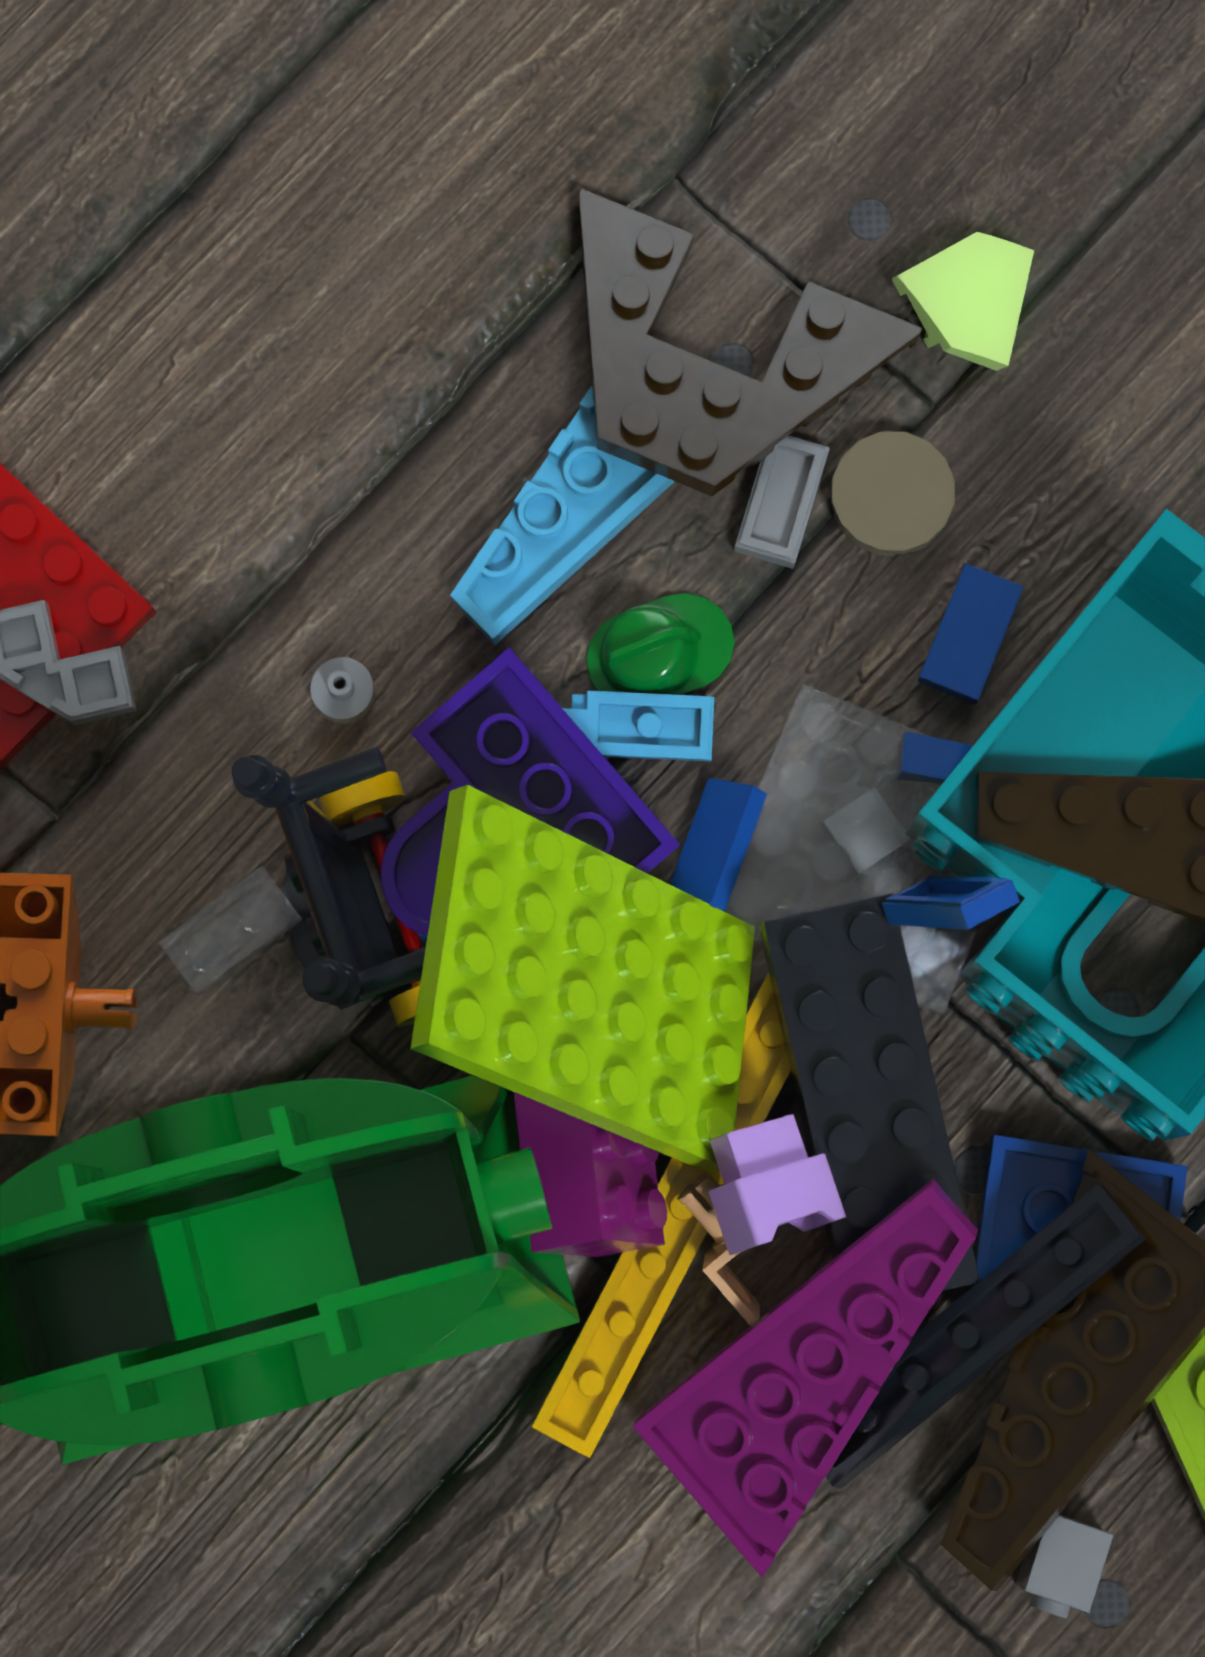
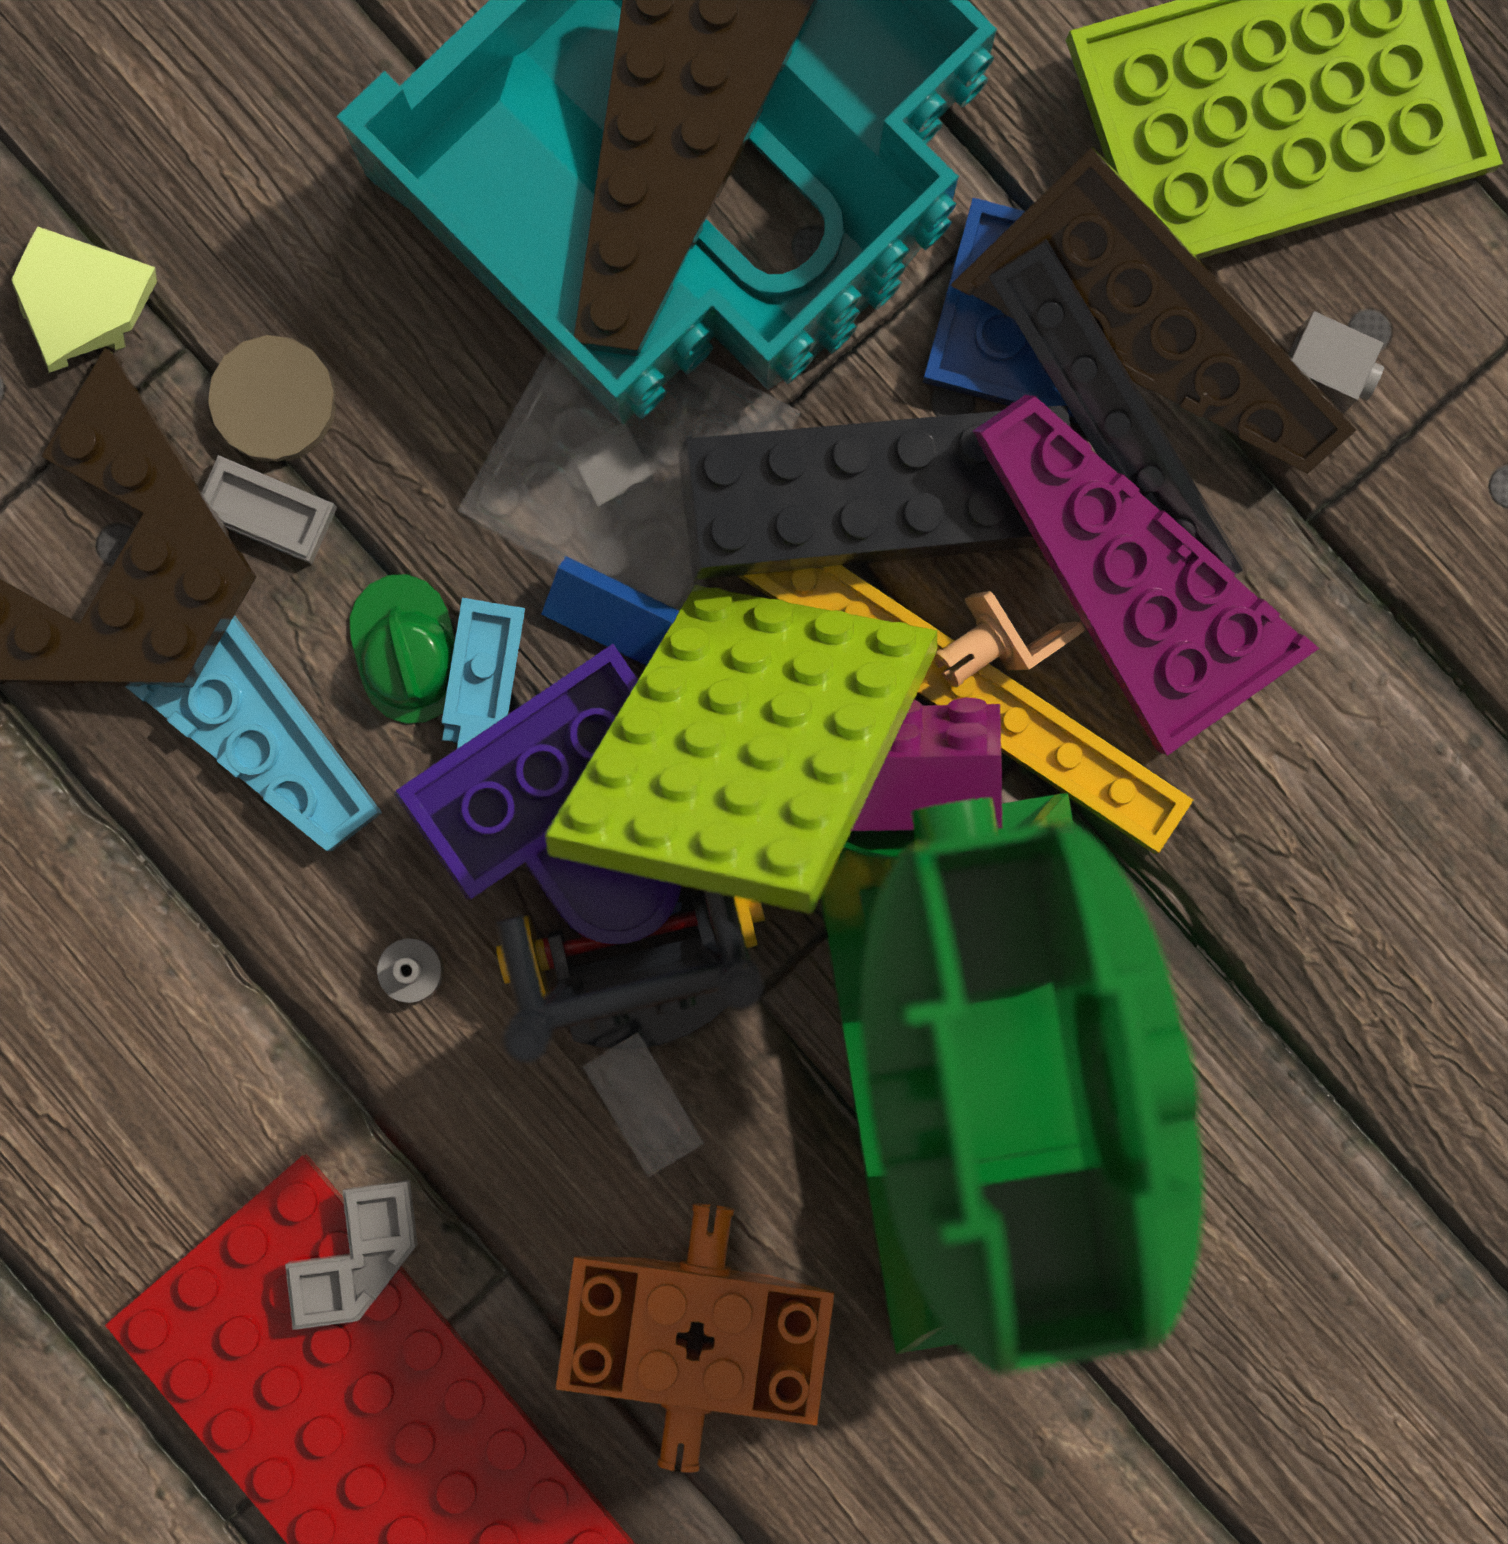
camera: 85 degrees left, 5 degrees up
(770, 1184) = (958, 591): lavender piece -> none
(928, 758) = (549, 391): blue piece -> none
(950, 902) = (707, 378): blue tile -> none
(970, 634) = (425, 339): blue tile -> none

